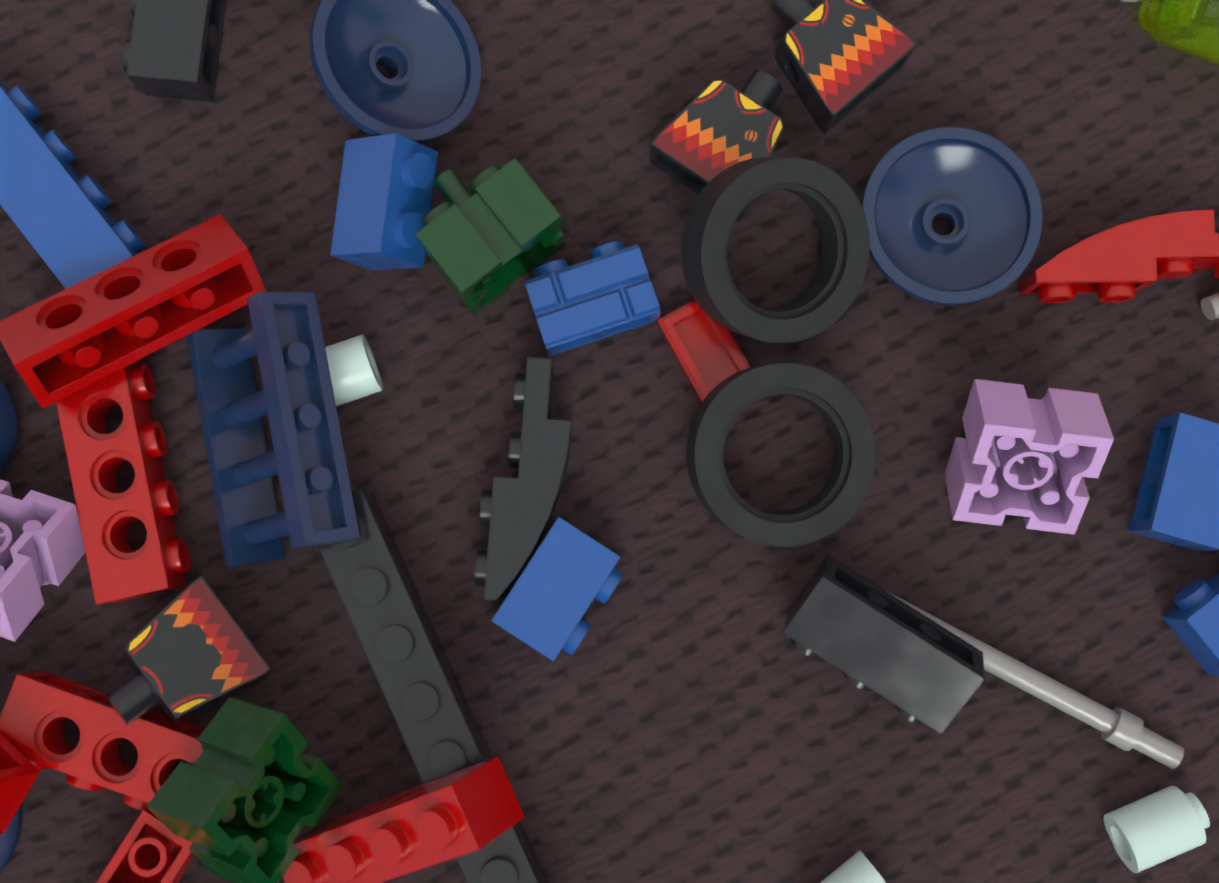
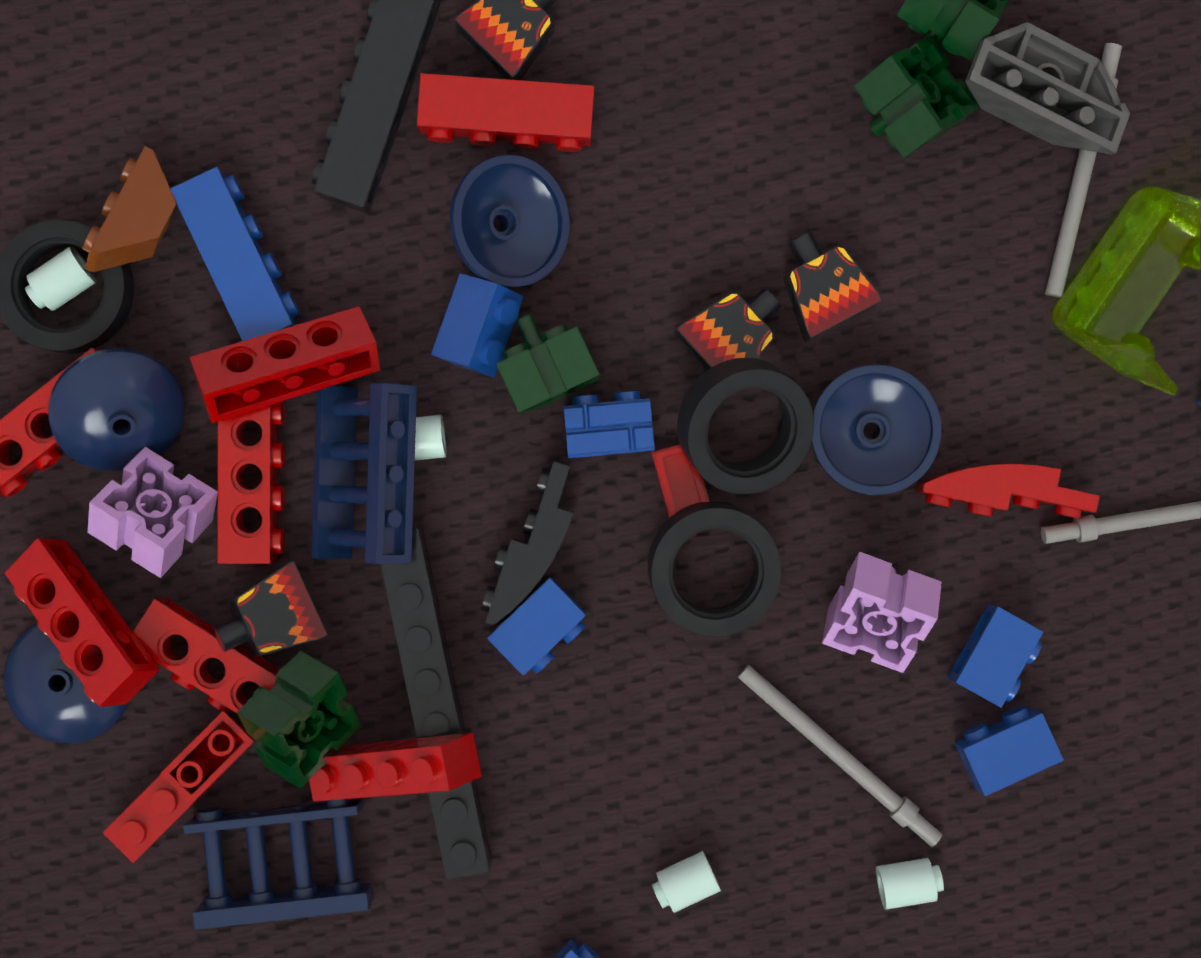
camera: 20 degrees right, 5 degrees up
(884, 645) = (753, 716): black brick -> none

